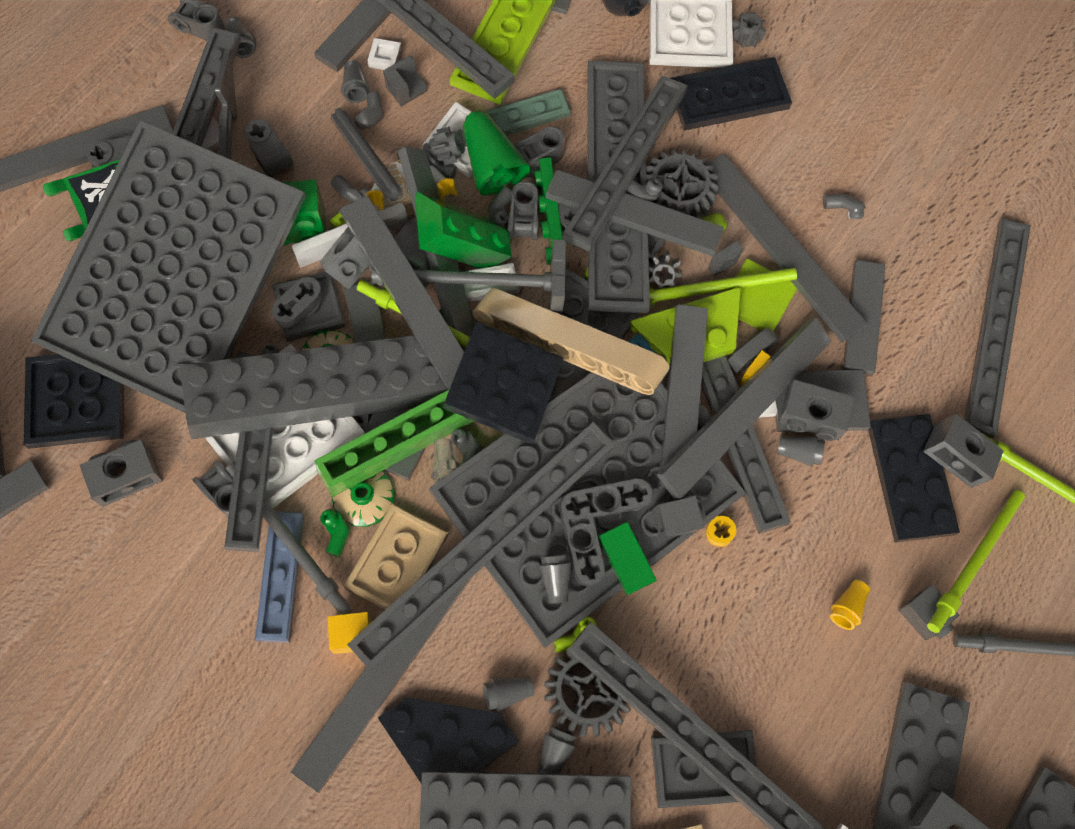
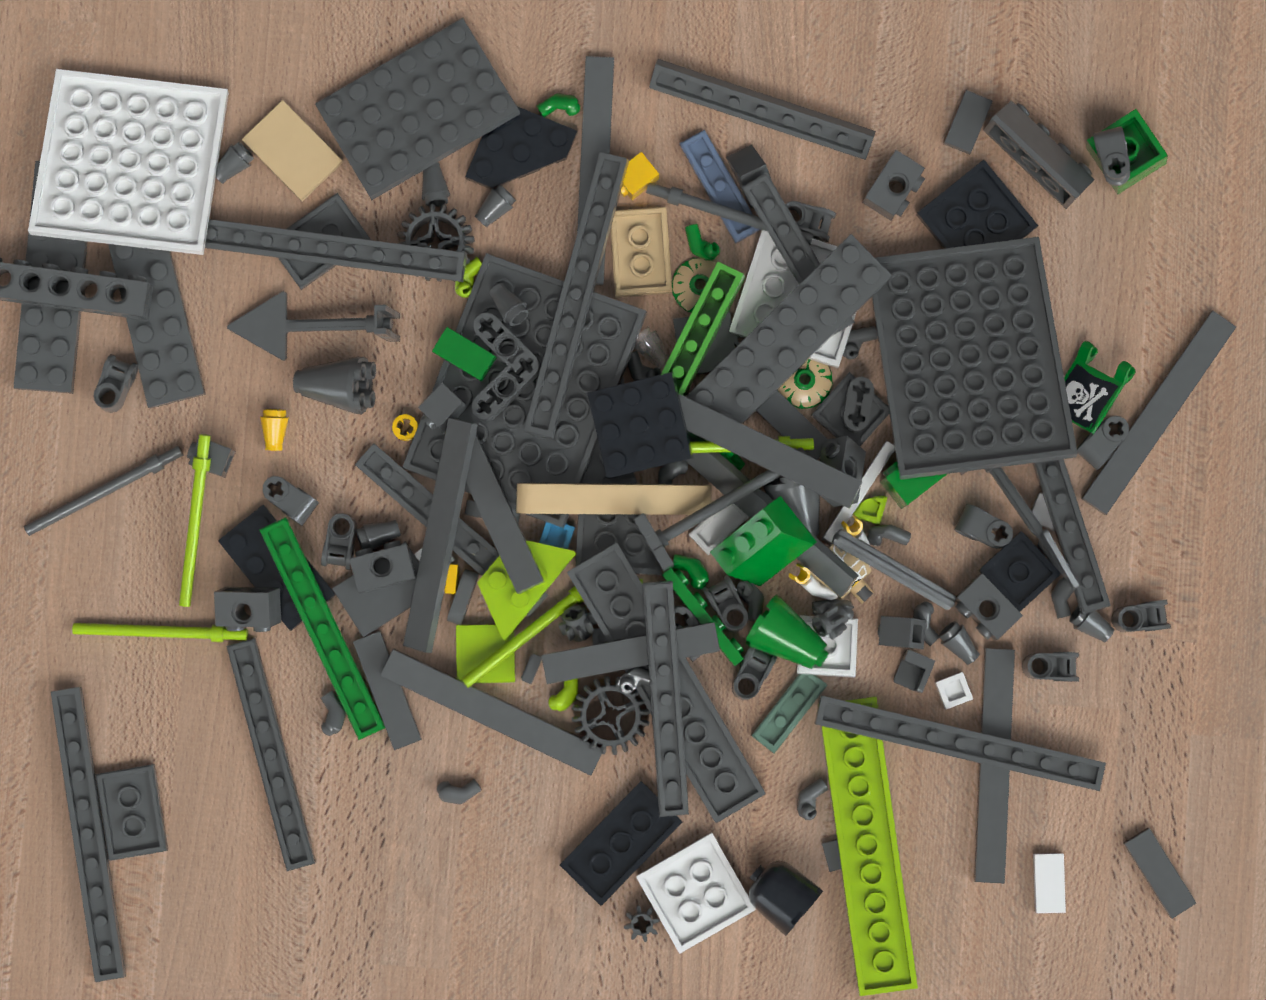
camera: 150 degrees right, 15 degrees up
(188, 626) = (762, 109): none -> dark grey plate
(241, 573) = (747, 166): none -> dark grey slope
(247, 71) = (1059, 596): none -> dark grey arm
(266, 99) = (1020, 571): none -> black plate
(295, 25) = (1057, 666): none -> dark grey piece
(309, 105) = (1003, 614): none -> dark grey brick
(374, 760) = (559, 101): none -> green arm
(395, 109) = (901, 632): none -> dark grey brick
(532, 257) = (694, 568): none -> green arm
(557, 43) = (807, 799): none -> dark grey arm
(766, 605) = (339, 384): none -> dark grey cone
(803, 709) = (269, 326): none -> dark grey piece
(843, 460) = (339, 543): none -> dark grey piece
(869, 525) = (292, 502): none -> dark grey piece
(900, 401) = (322, 628): none -> green tile
(922, 322) = (335, 716): none -> dark grey arm
(991, 752) = (115, 381): none -> dark grey piece

